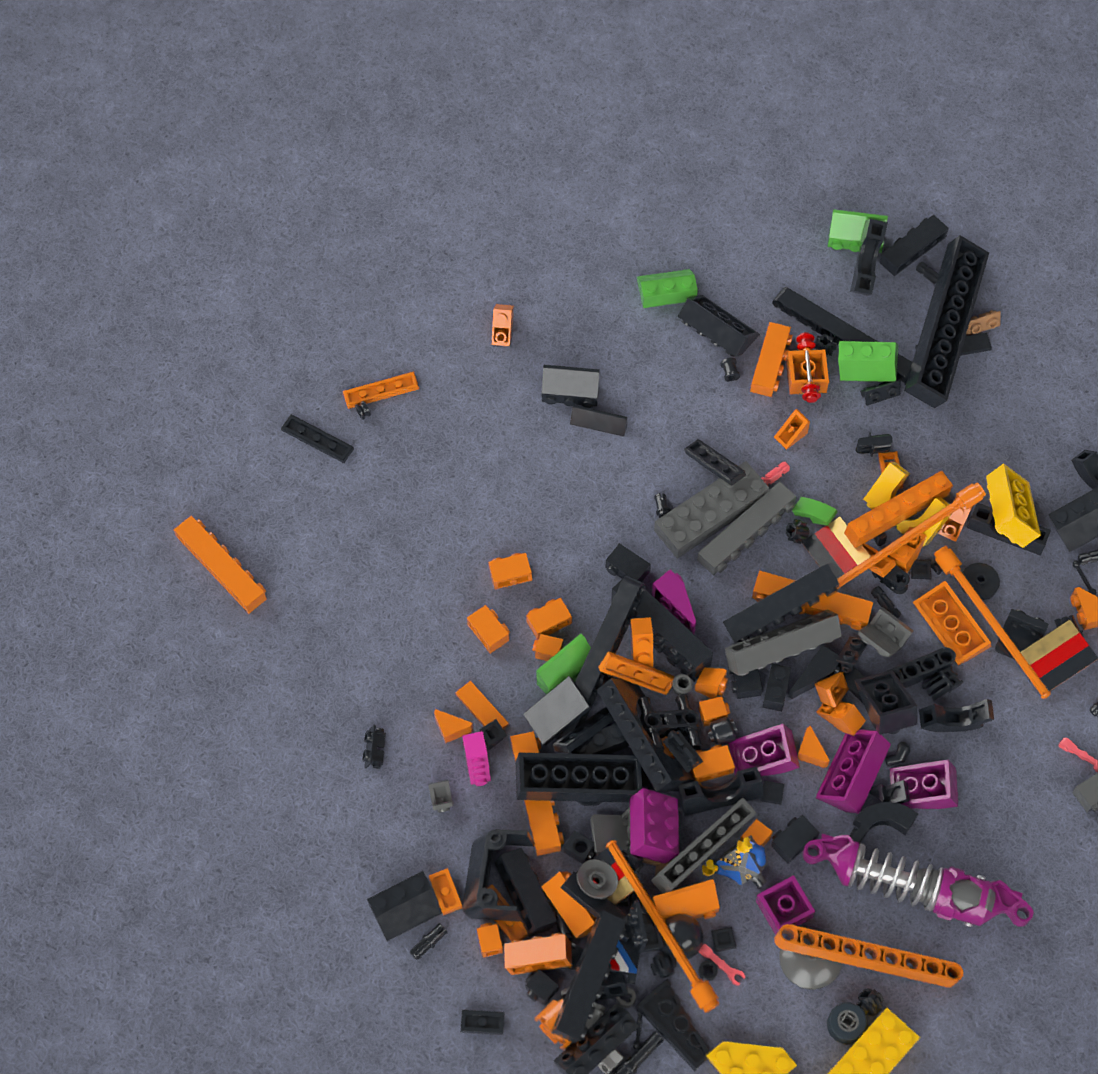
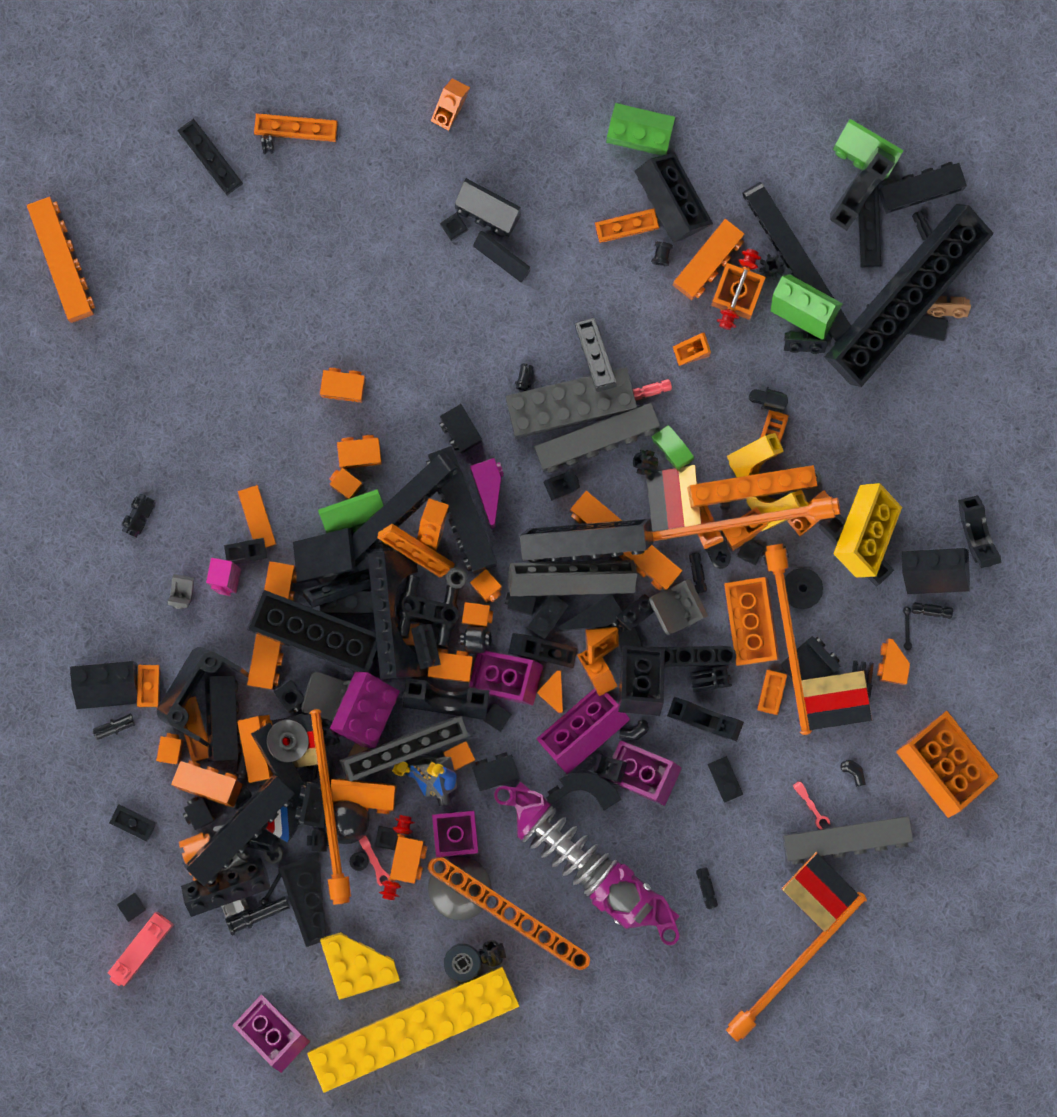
camera: 20 degrees right, 20 degrees up
(452, 726) = (217, 525): orange slope -> none
(488, 628) = (296, 439): orange brick -> none
(547, 414) = (453, 226): none -> black tile
(690, 361) = (626, 225): none -> orange tile
(736, 576) = (562, 485): none -> black bracket
(752, 946) = (406, 859): none -> orange brick
(789, 715) = (542, 650): none -> black slope
(889, 294) = (870, 231): none -> black tile
(998, 763) = (725, 779): none -> black plate
(999, 674) = (772, 692): none -> orange plate
(1031, 864) = (706, 888): none -> black axle

